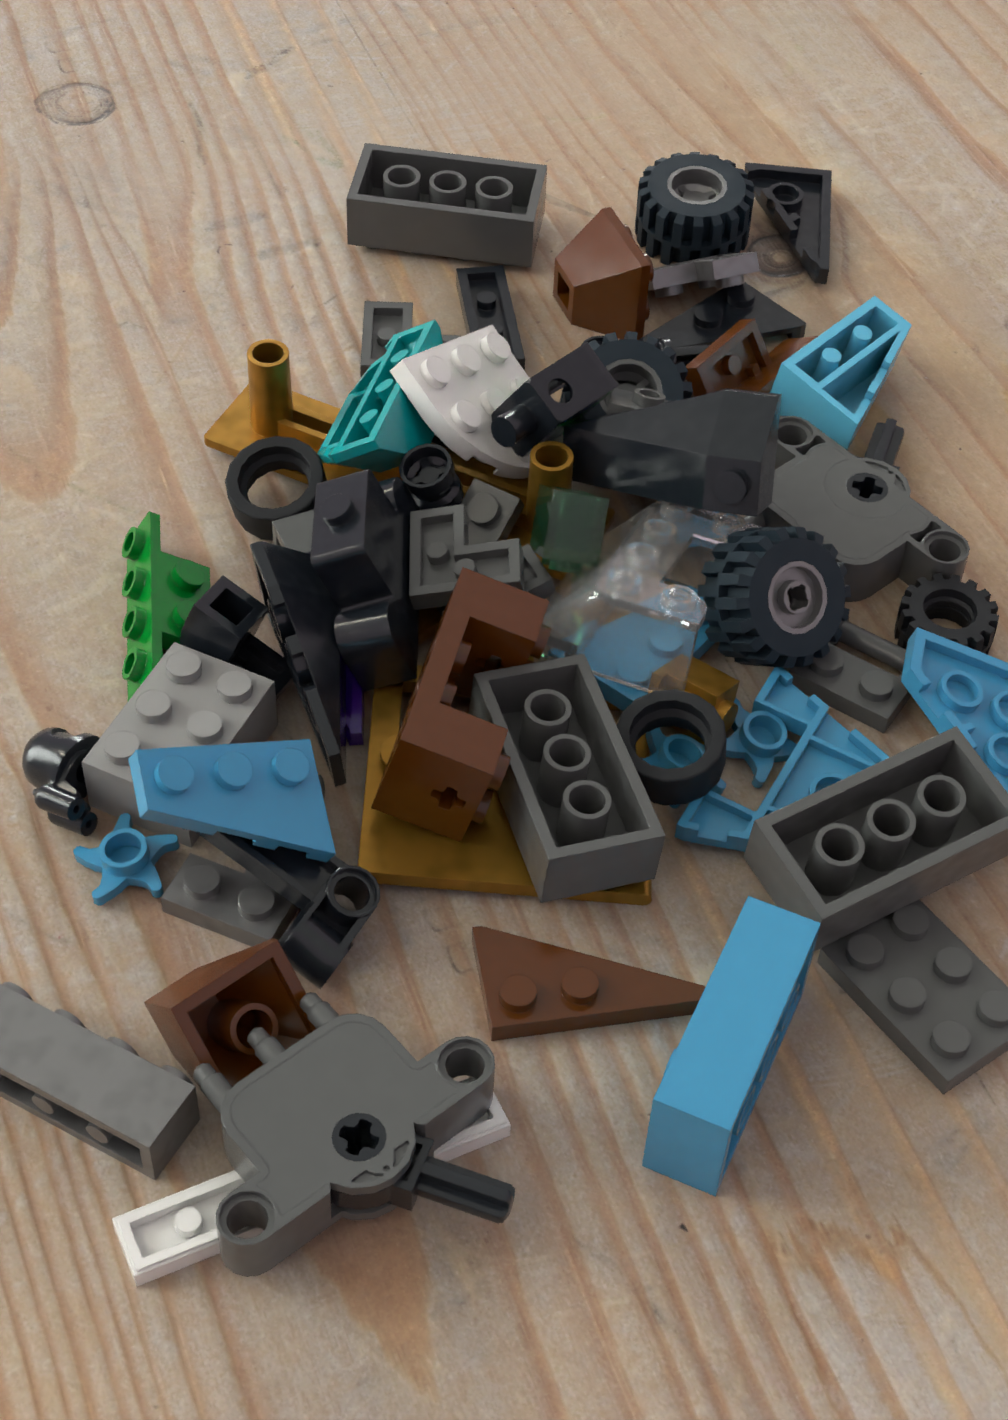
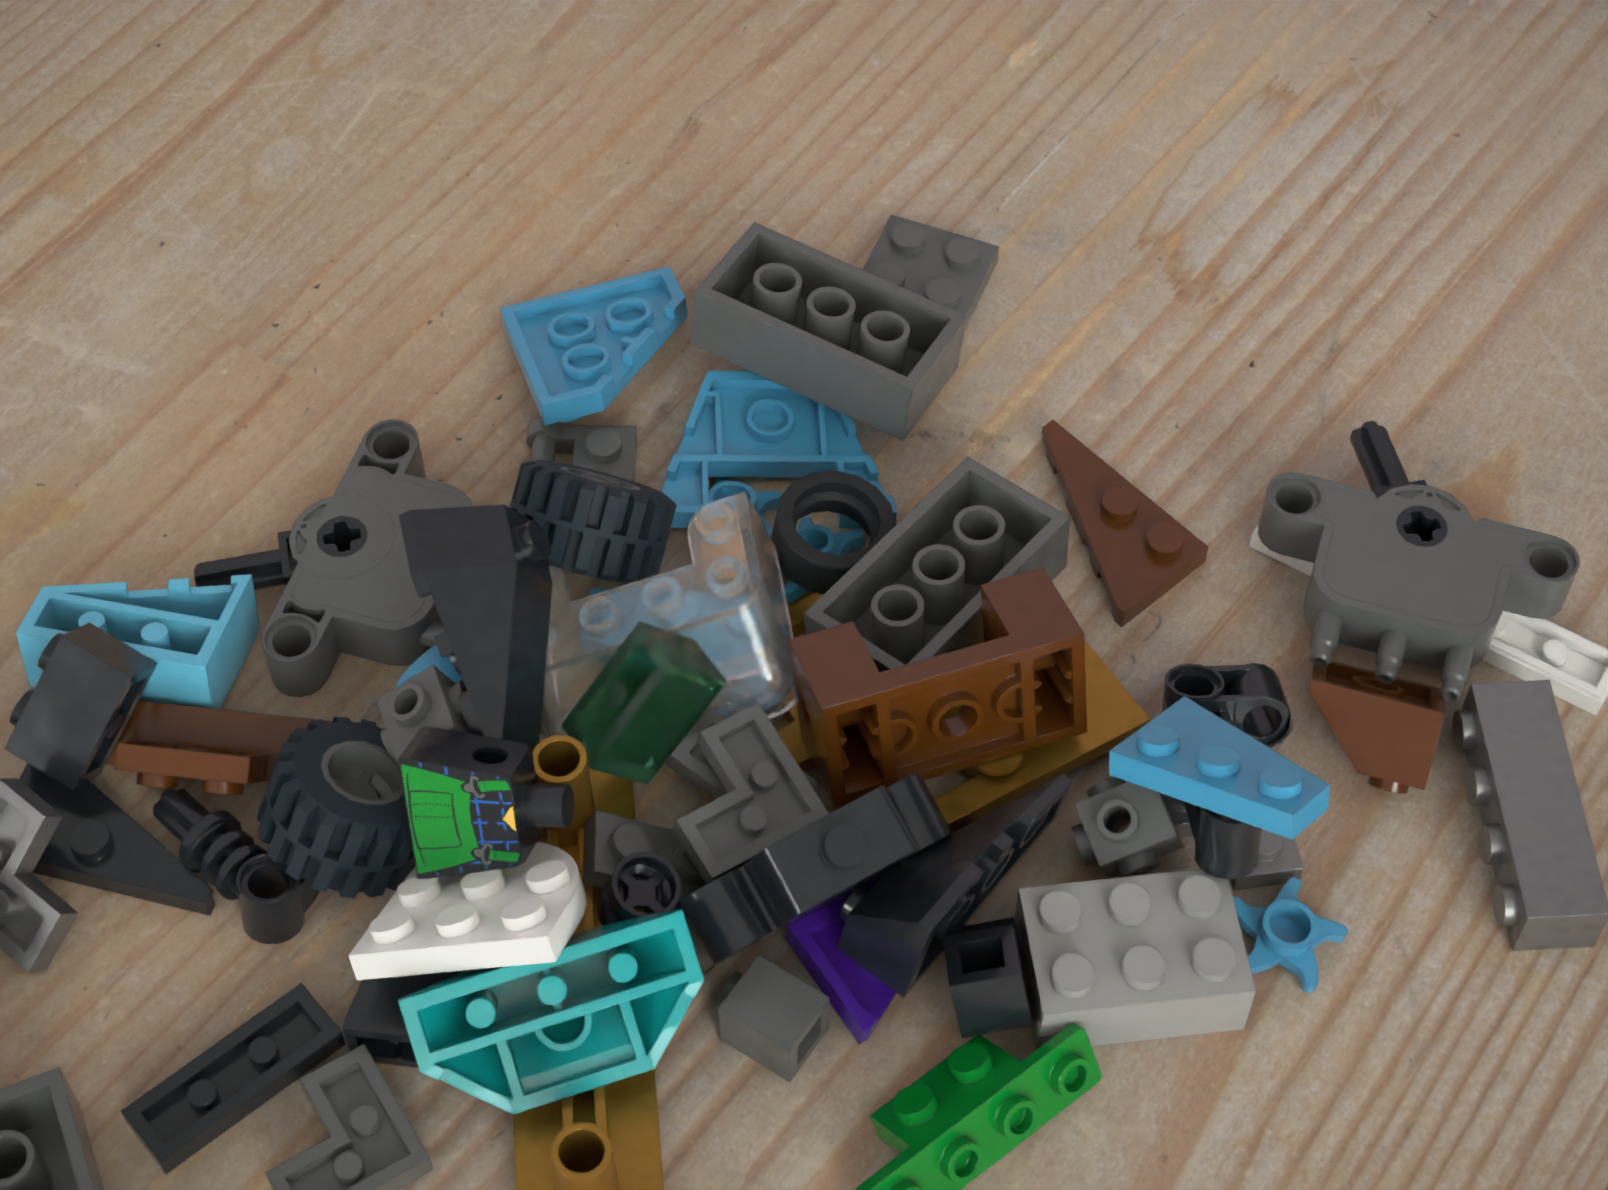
camera: 120 degrees left, 5 degrees up
(55, 768) = (1248, 1048): black piece -> none
(259, 459) = (735, 1061): black tyre -> none
(604, 278) = (101, 957): reddish brown slope -> none
(729, 1046) = (1107, 356): dark azure brick -> none
(799, 311) = (78, 704): none -> black brick
(949, 601) = (472, 403): black tyre -> none

